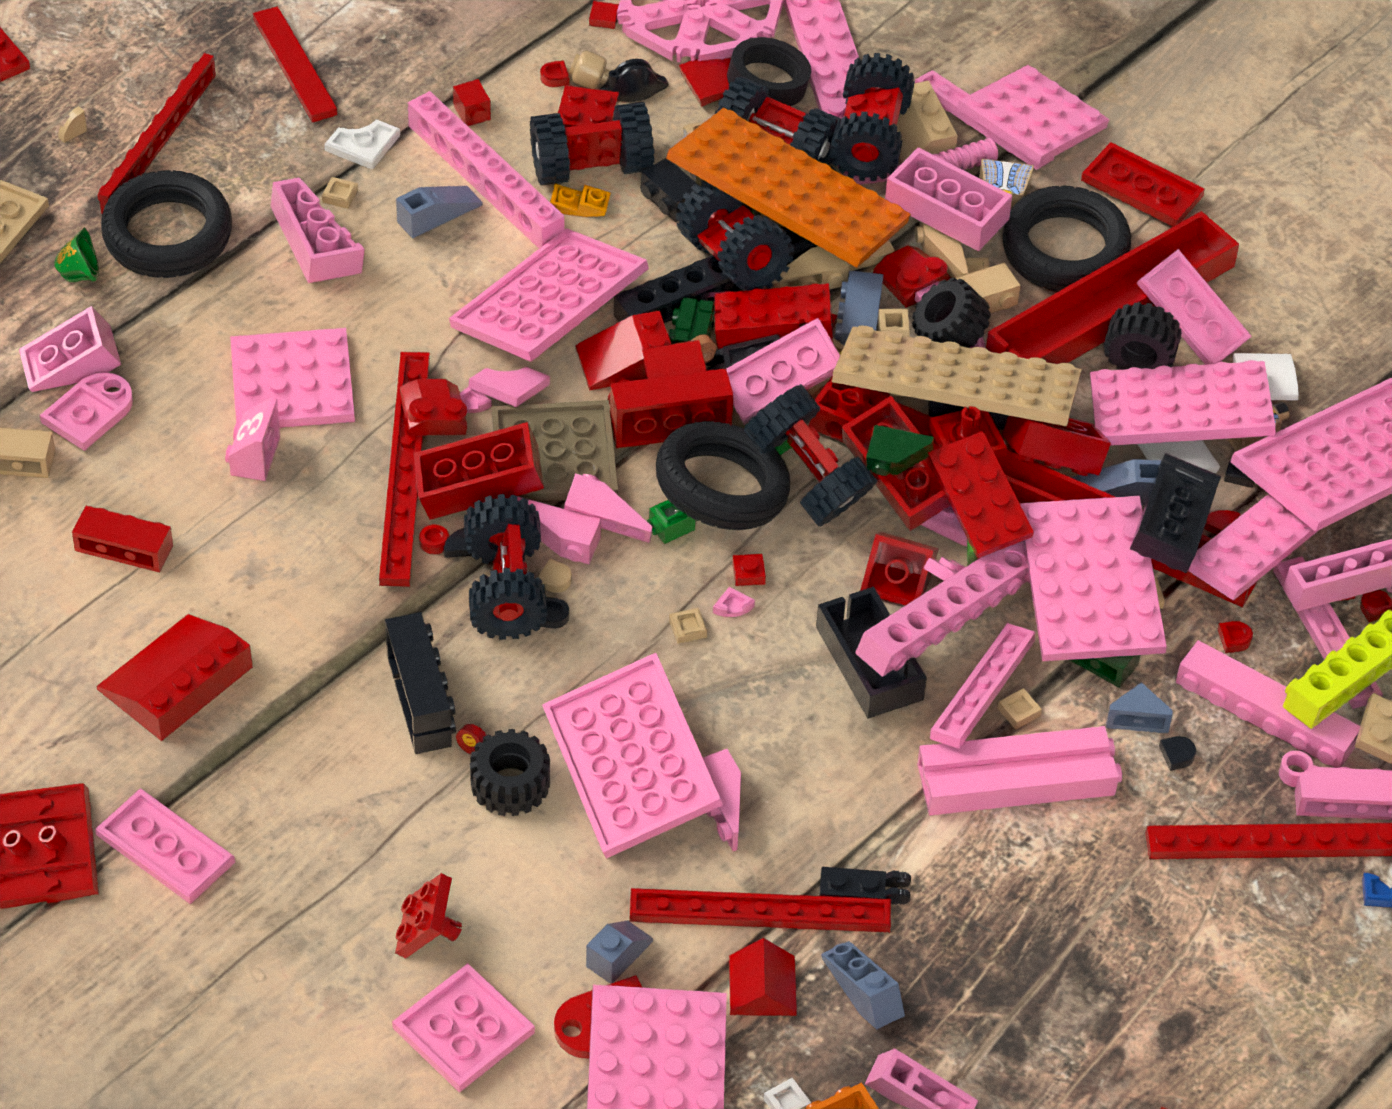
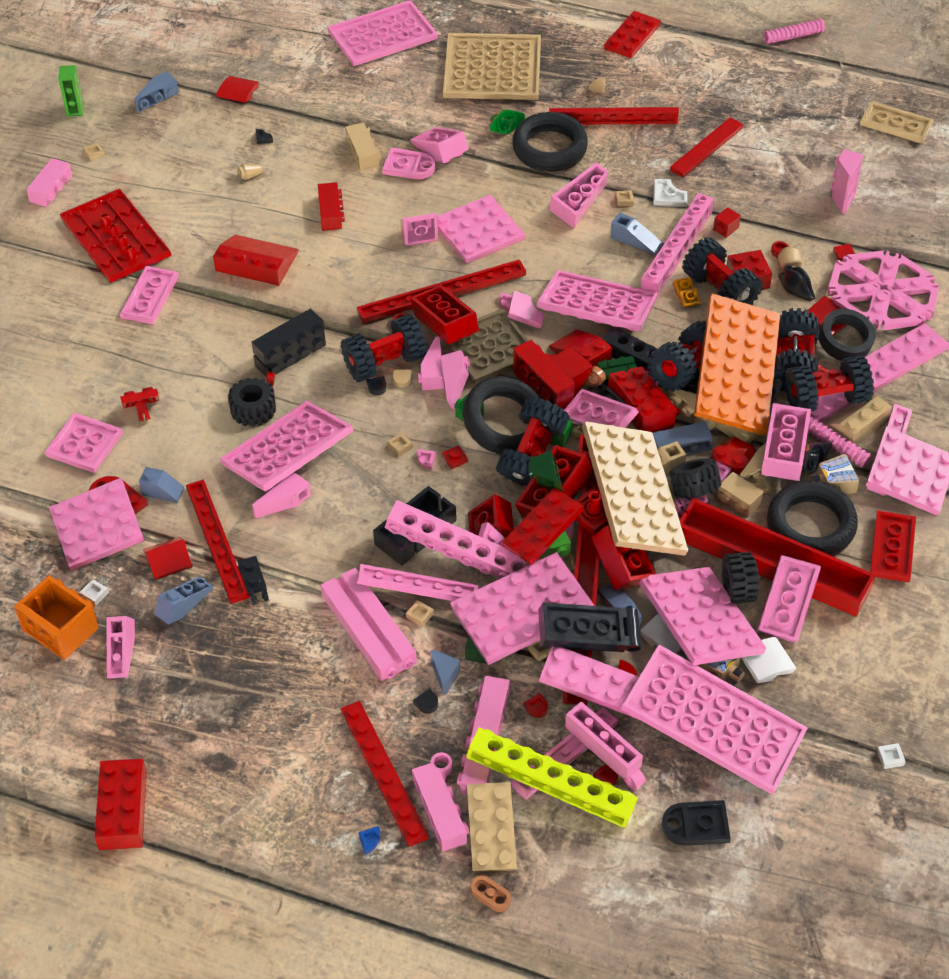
camera: 70 degrees right, 0 degrees up
(433, 408) = (484, 284): red slope -> none

